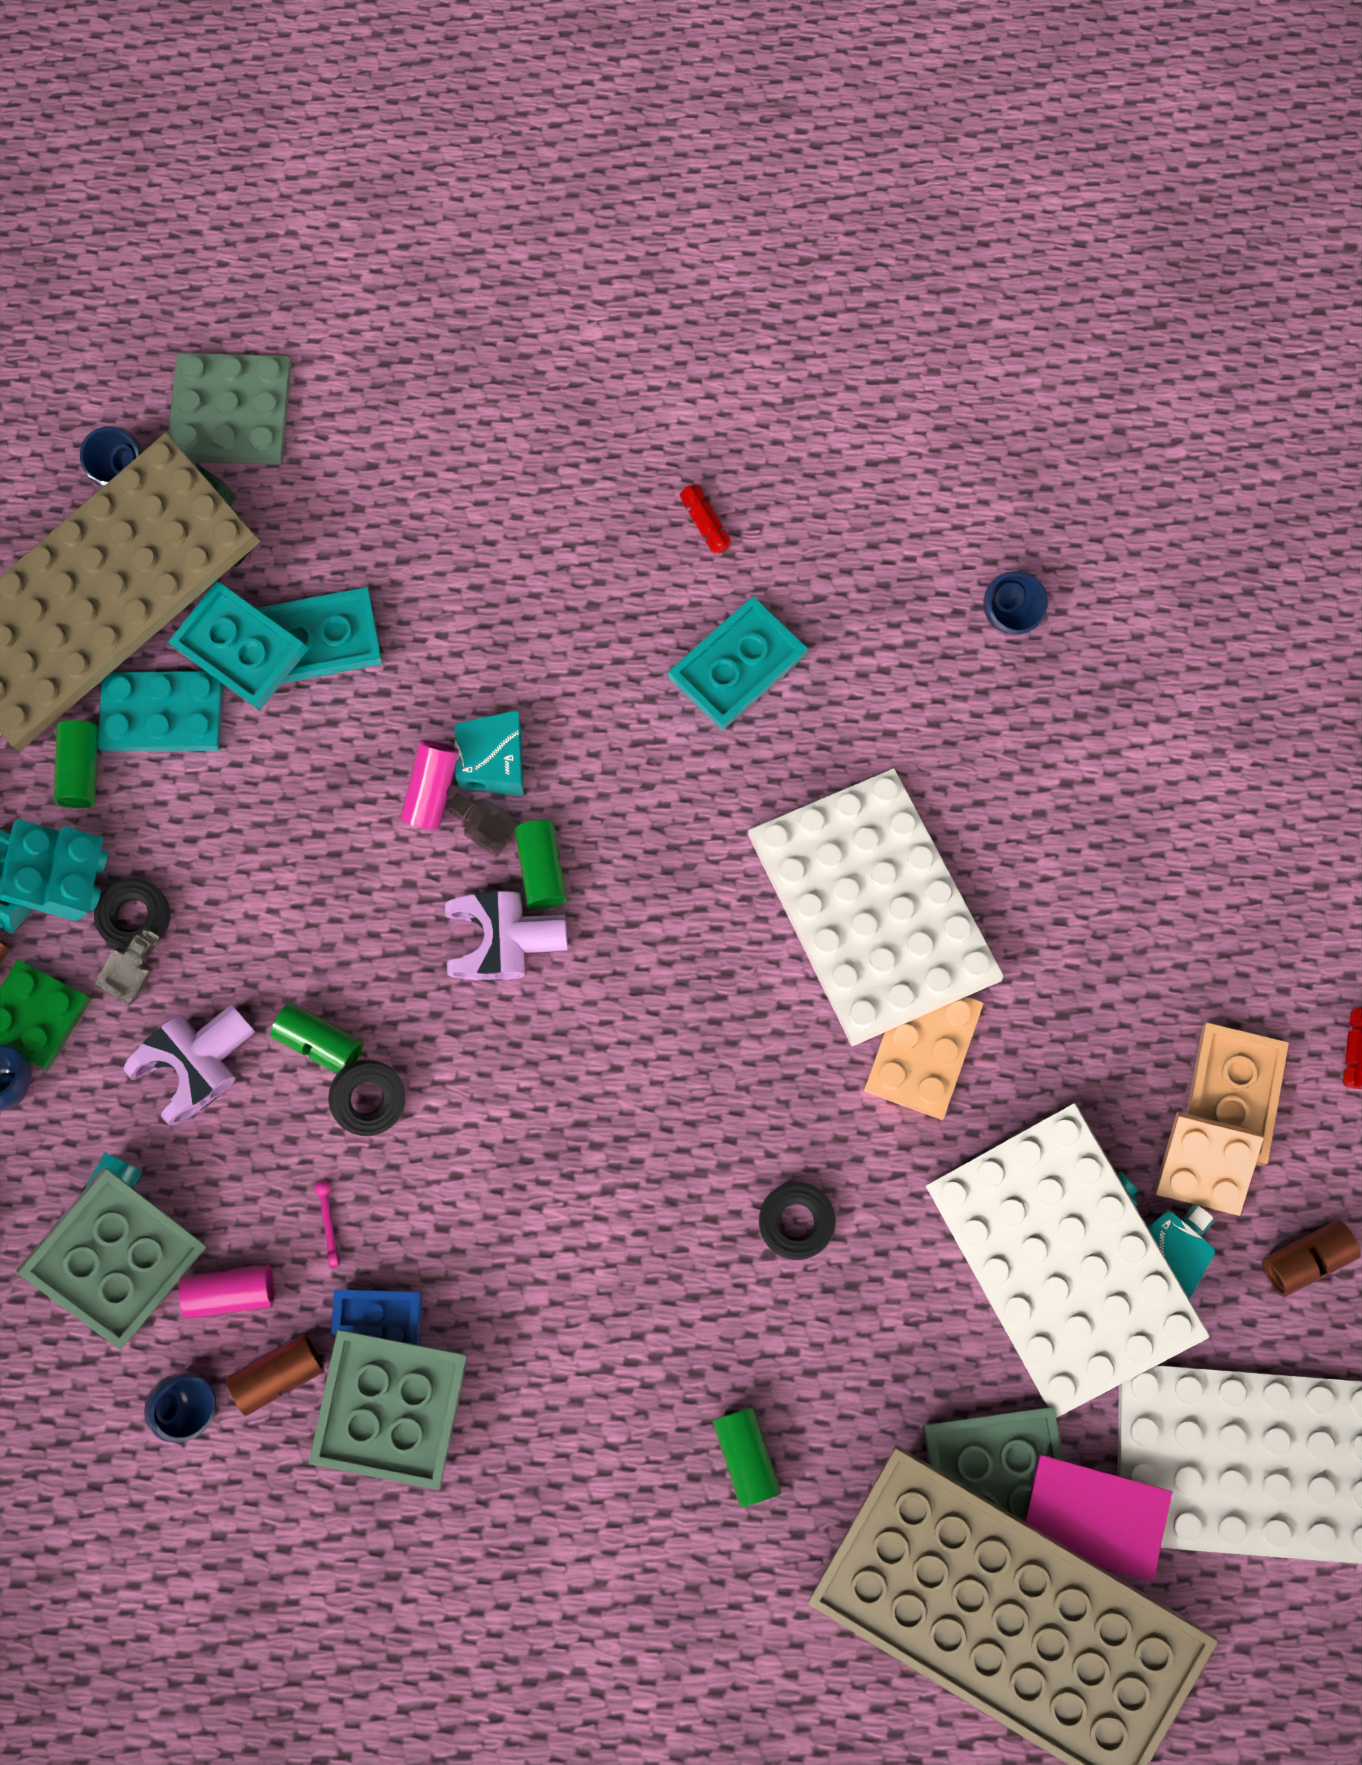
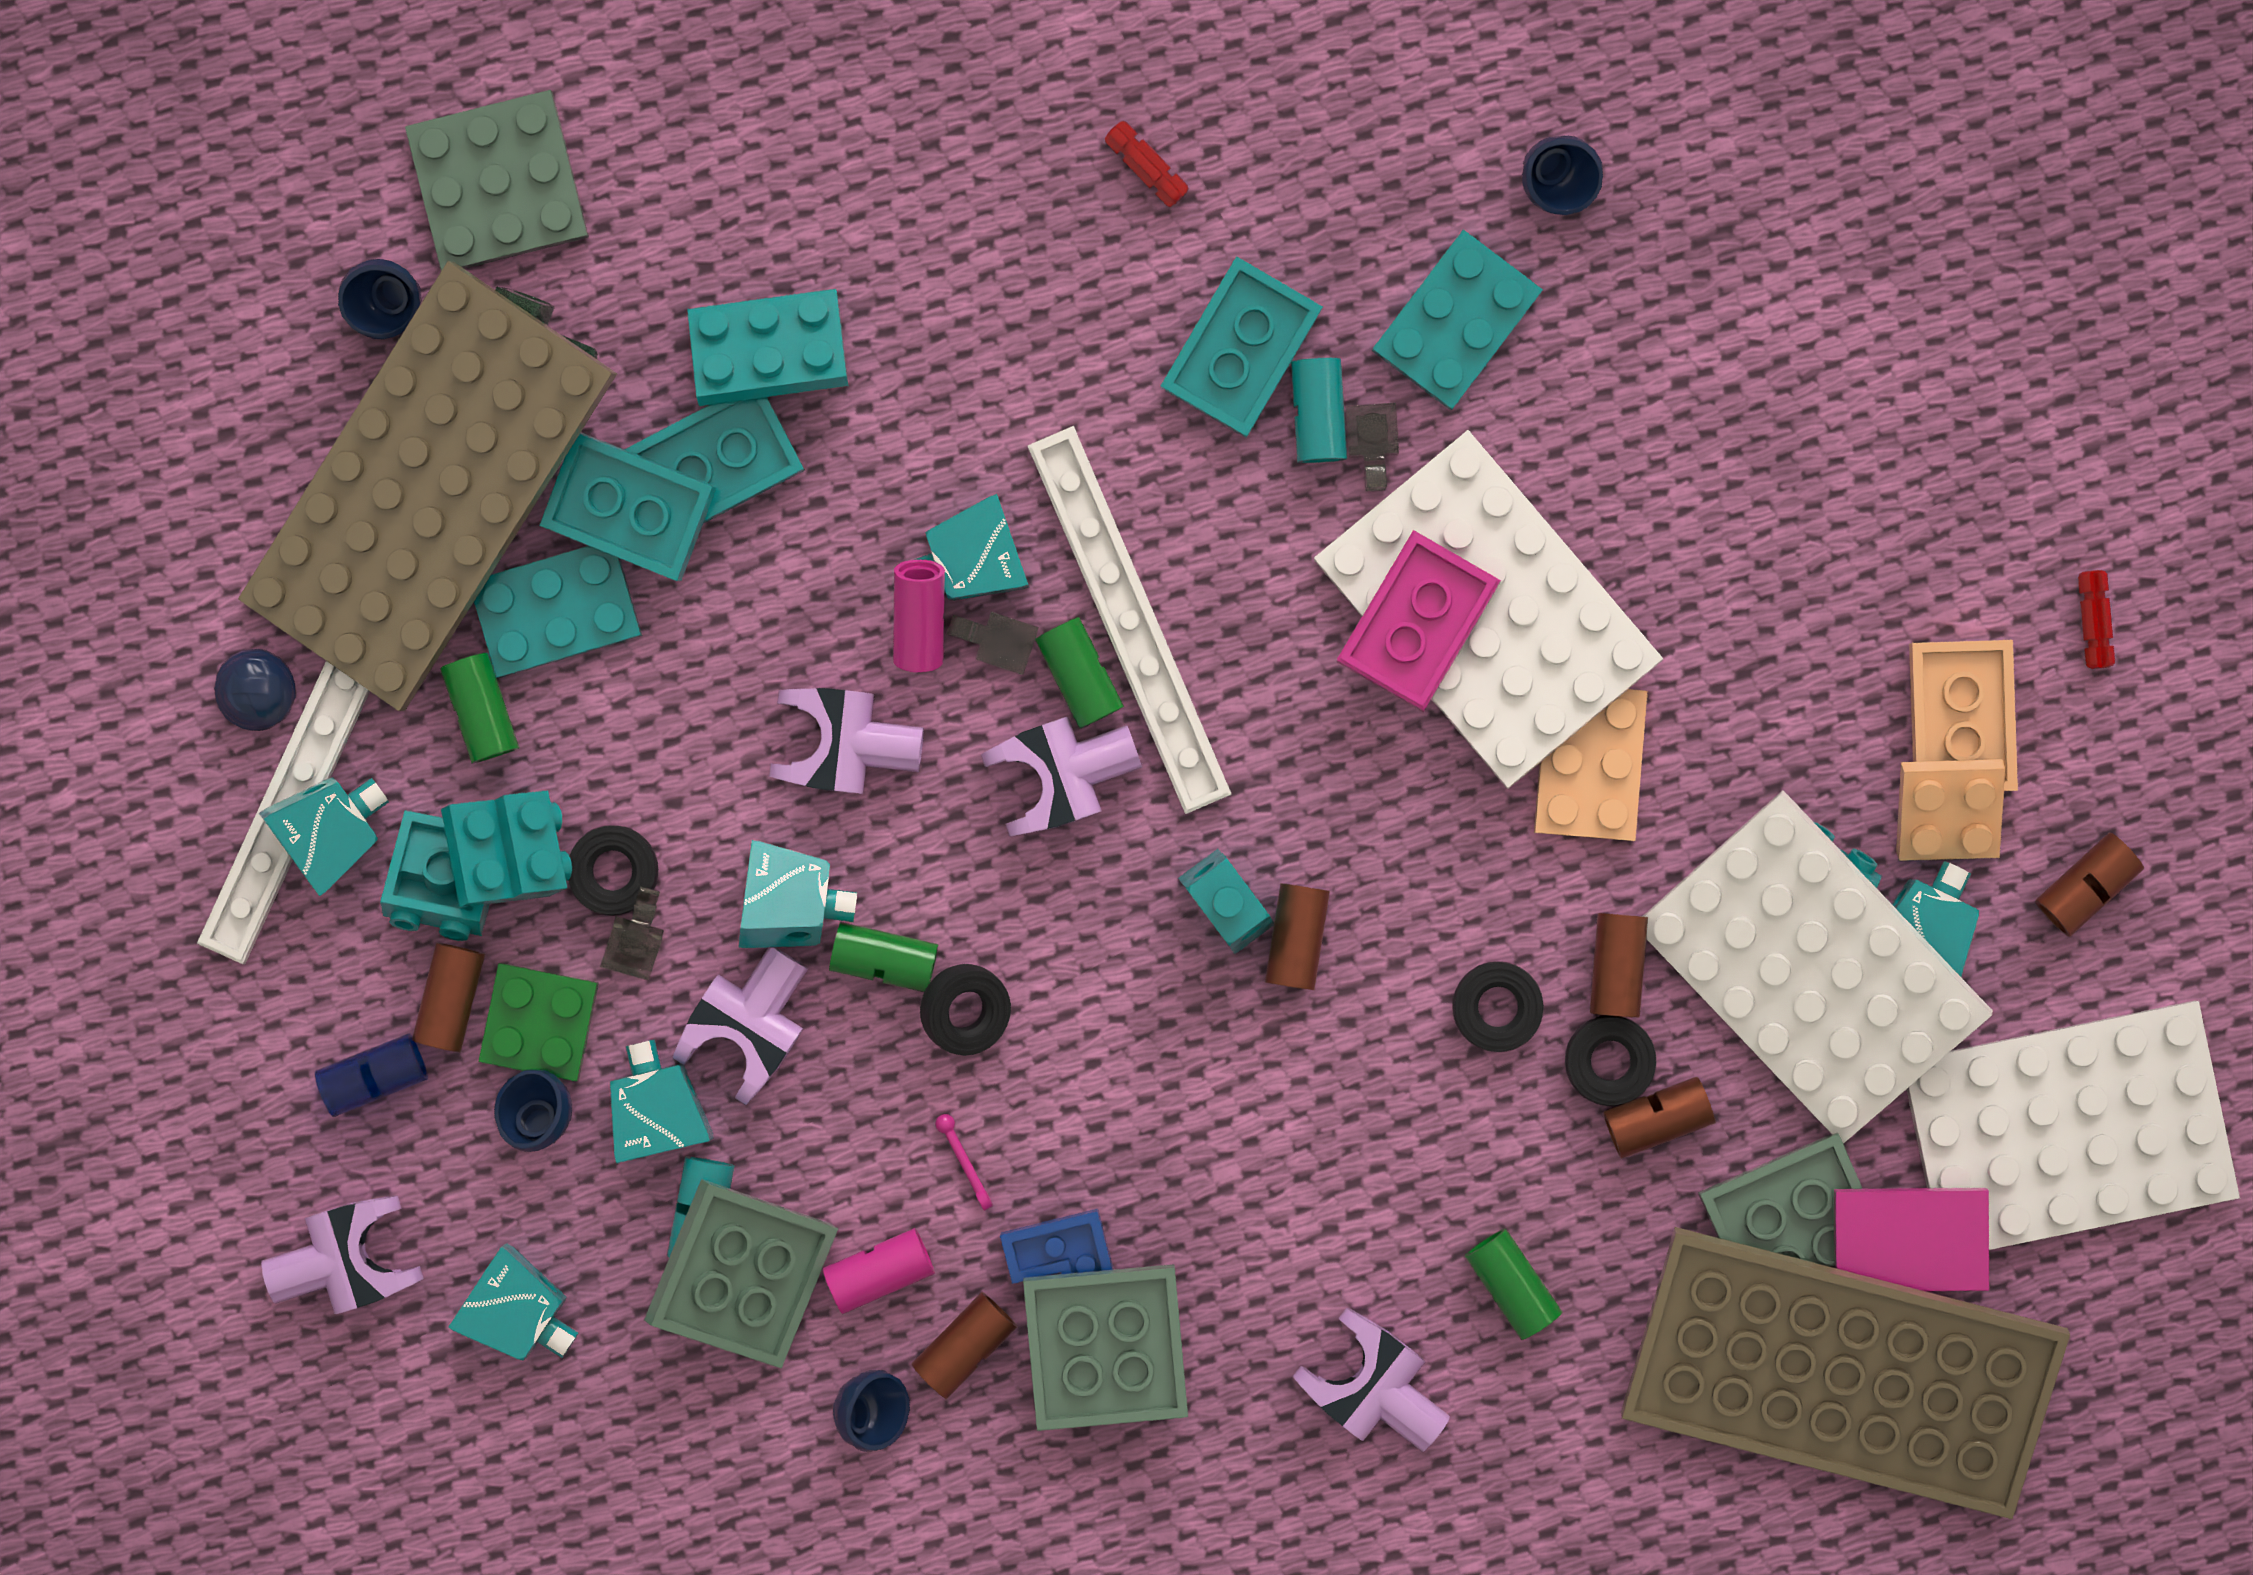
camera: 15 degrees left, 15 degrees up
(95, 1106) = (655, 1107): none -> teal torso
(255, 970) = (789, 899): none -> torso
(344, 866) = (848, 741): none -> lavender connector
(383, 567) = (767, 347): none -> teal plate
(592, 843) = (1129, 620): none -> white tile
(603, 1073) = (1226, 901): none -> teal torso
(607, 1516) = (1378, 1388): none -> lavender connector
(650, 1116) = (1297, 936): none -> copper pin
(783, 722) = (1320, 407): none -> teal pin
(816, 893) = (1418, 621): none -> dark pink tile
(818, 756) = (1372, 435): none -> clear smoke plate
(901, 1279) = (1616, 1091): none -> black tyre
(905, 1213) = (1618, 965): none -> copper pin
(906, 1350) = (1659, 1117): none -> copper pin
(907, 689) = (1457, 320): none -> teal plate

